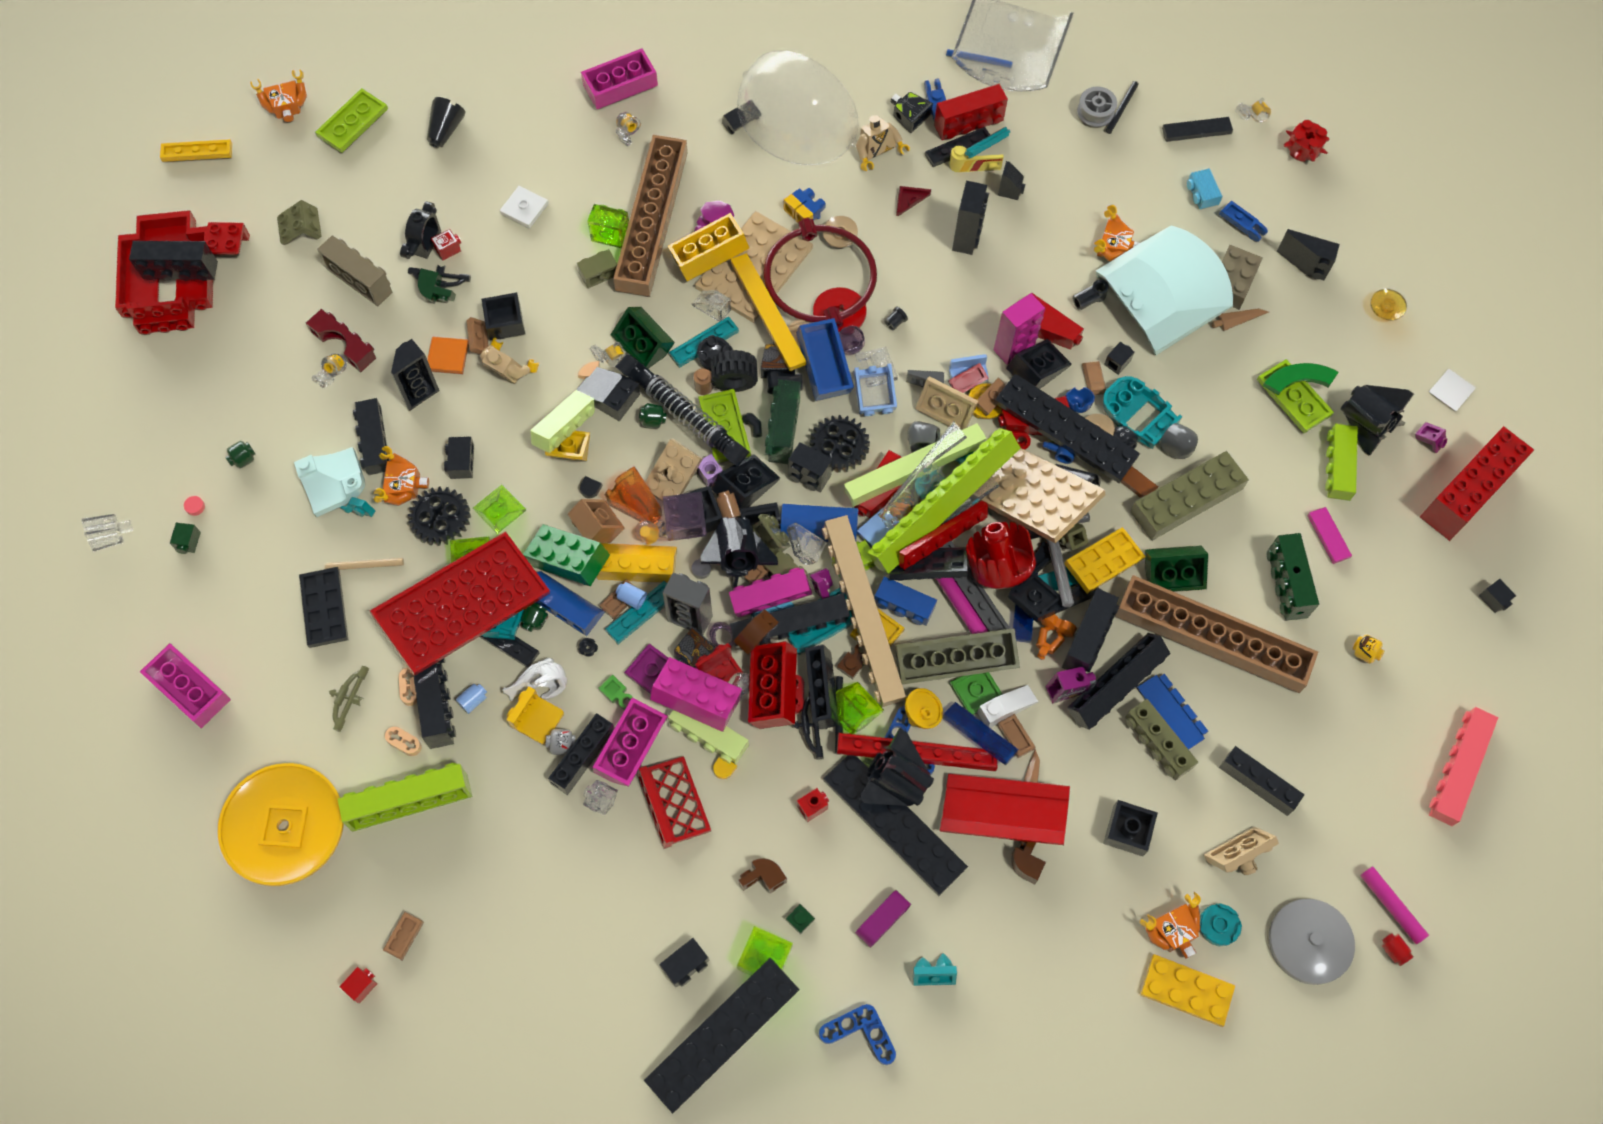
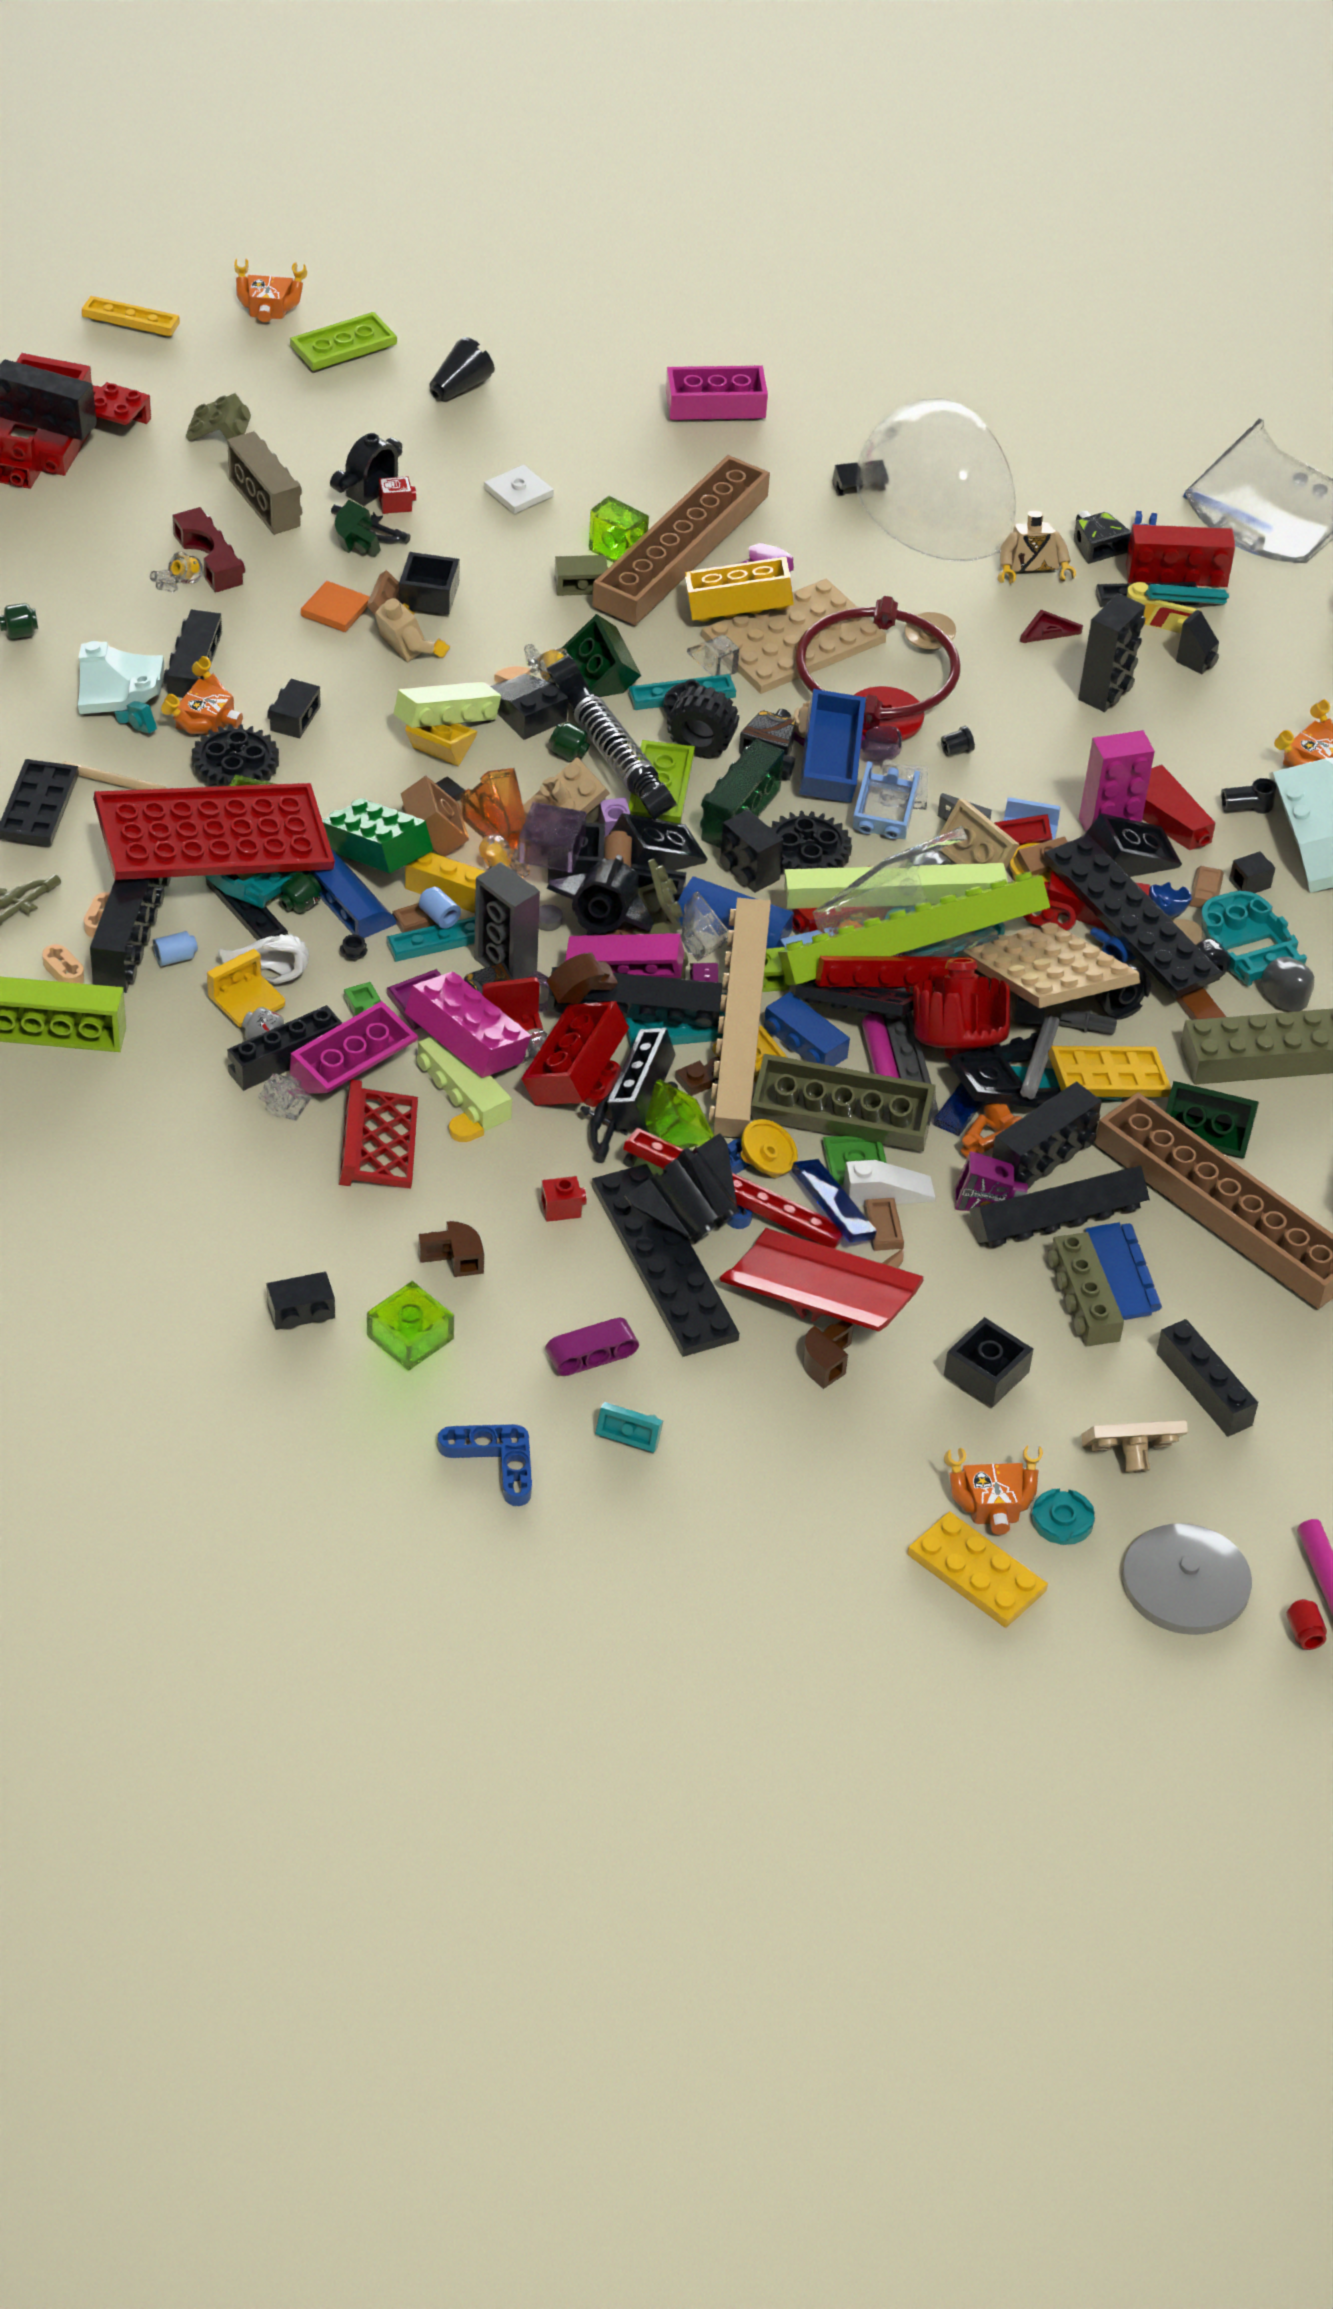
camera: 20 degrees right, 20 degrees down
(413, 374) = (279, 595): black slope -> none
(499, 509) = (322, 773): clear neon green slope -> none
(626, 126) = (700, 444): clear piece -> none
(703, 381) = (656, 724): medium nougat brick -> none
(721, 1035) = (308, 1381): black plate -> none
(751, 419) = (701, 787): black arm -> none
(768, 312) = (783, 678): yellow tile -> none
(800, 205) = (898, 586): hips -> none
(800, 919) = (480, 1313): dark green plate -> none
(1075, 537) = (1088, 1030): olive brick -> none

